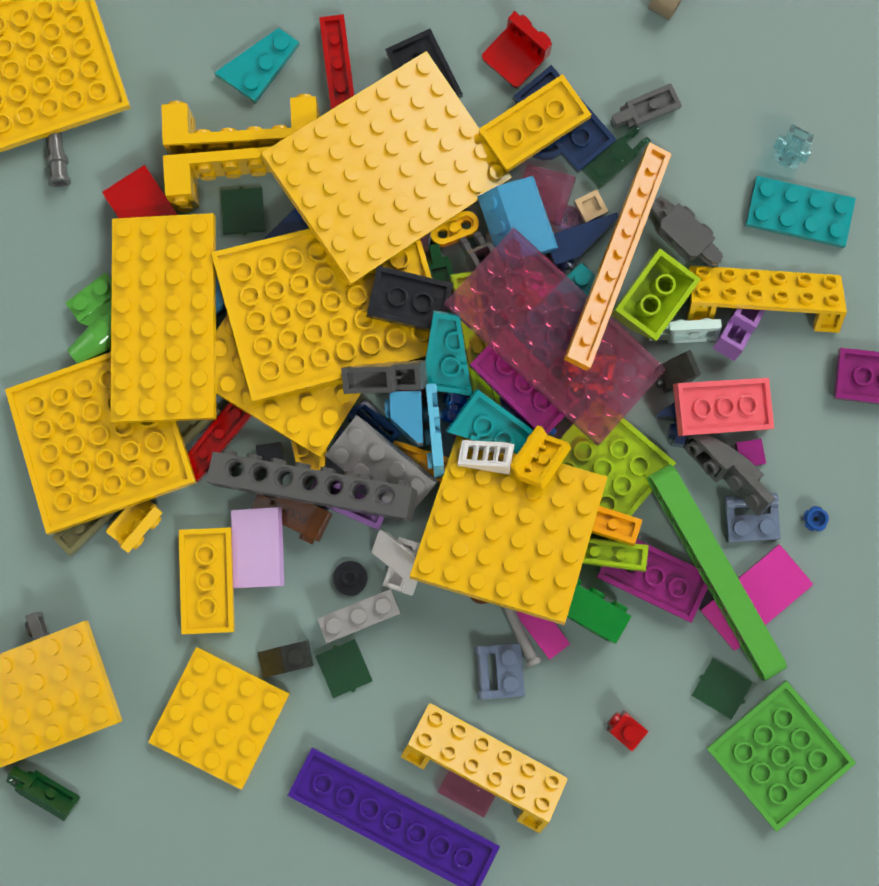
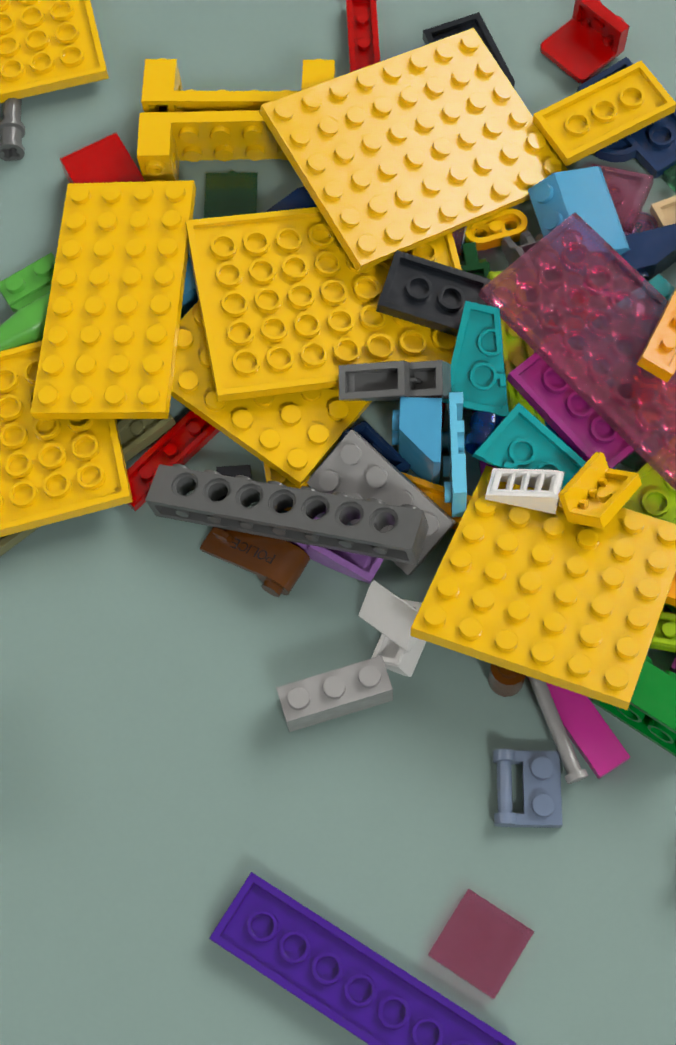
camera: 10 degrees right, 15 degrees down
(133, 524) = (36, 553): yellow bracket -> none
(206, 581) = (130, 634): yellow plate -> none
(219, 718) = (125, 823): yellow plate -> none
(257, 547) = (204, 594): lavender tile -> none
(259, 65) = (268, 44): teal wing -> none
(285, 659) = (227, 745): pearl dark grey slope -> none
(344, 668) = (307, 768): clear green piece -> none
(350, 578) = (326, 647): black piece -> none
(487, 764) = (505, 919): yellow bracket -> none

